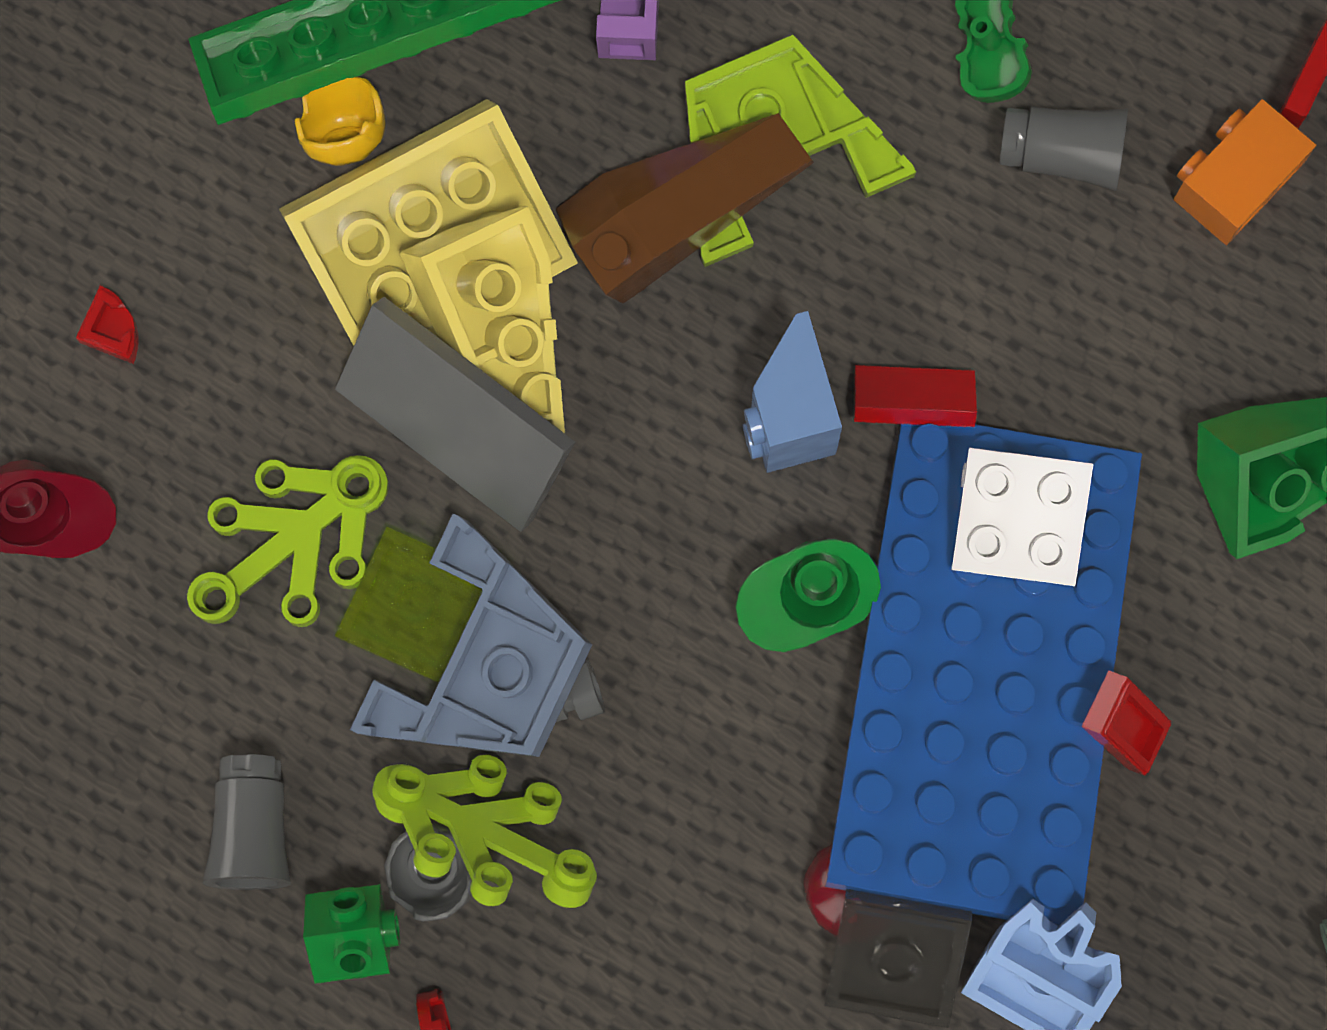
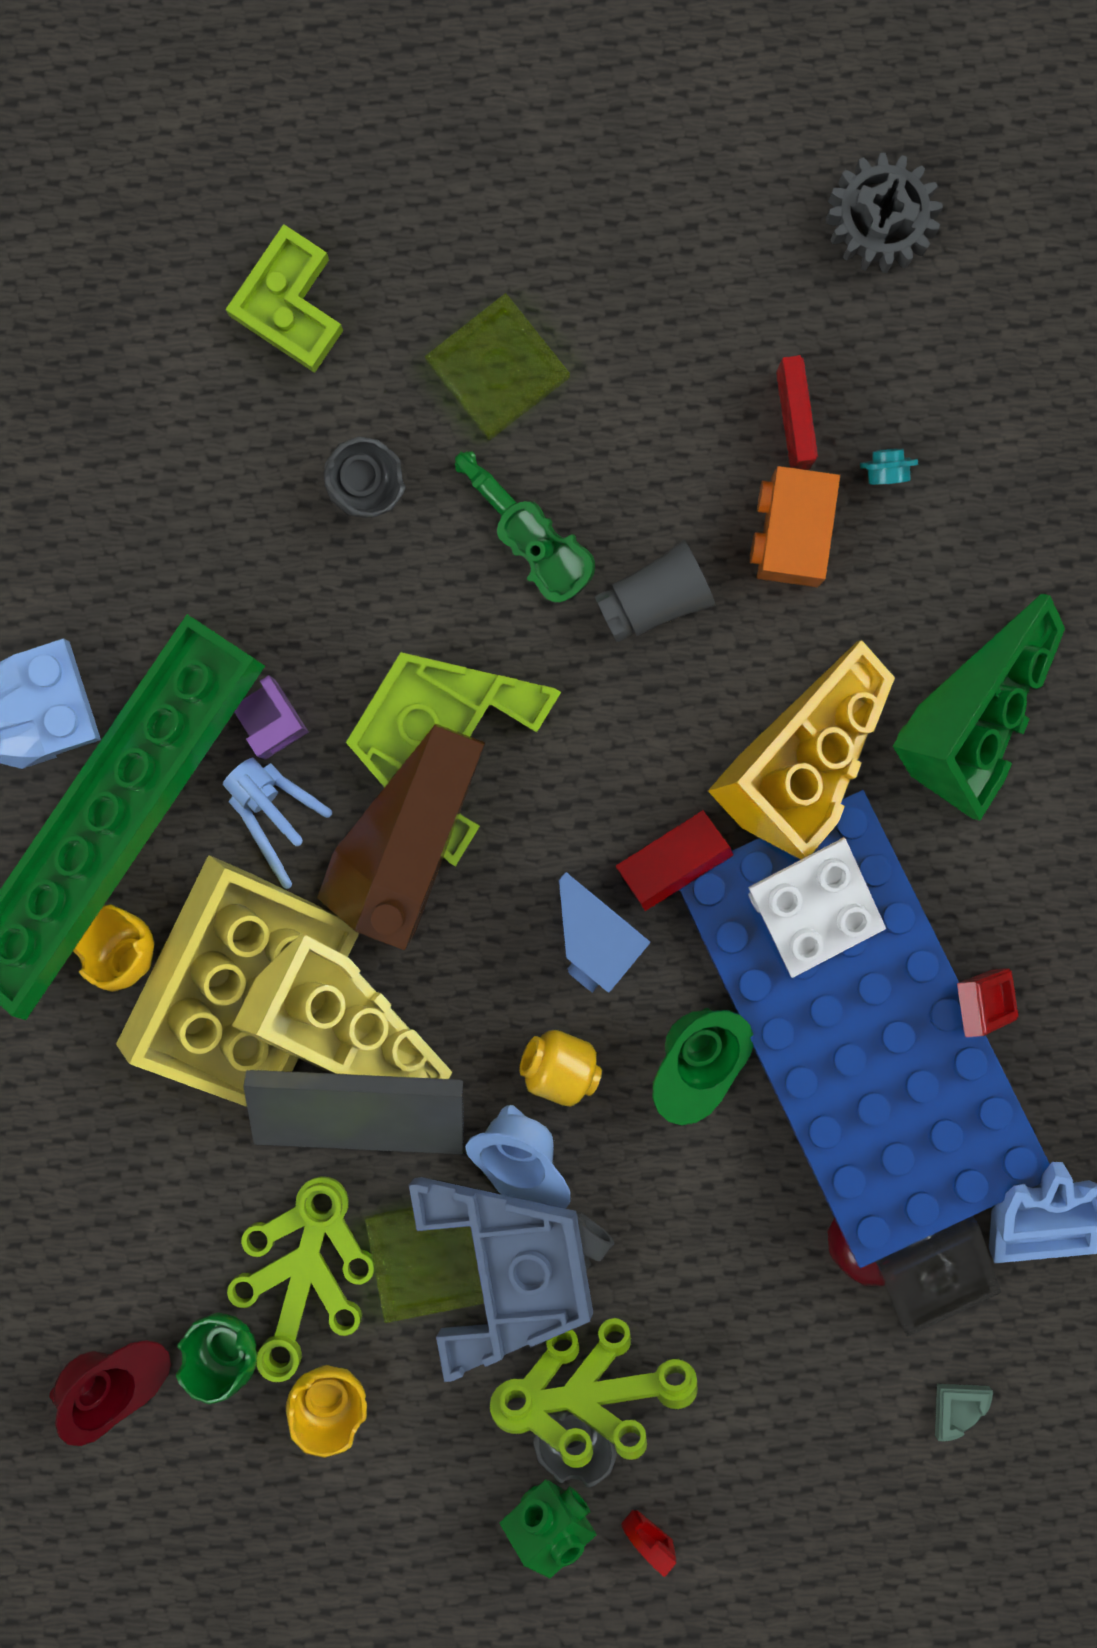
camera: 40 degrees left, 10 degrees up
(110, 327) = (56, 1212): red tile -> none
(159, 552) = (216, 1358): none -> green hair
(222, 672) = (325, 1410): none -> yellow hair
(248, 826) = (424, 1503): dark grey plant -> none
(571, 74) = (253, 788): none -> light blue plant
(572, 563) = (519, 1159): none -> light blue piece
(671, 511) = (560, 1068): none -> yellow head
(1099, 389) = (799, 768): none -> yellow wedge

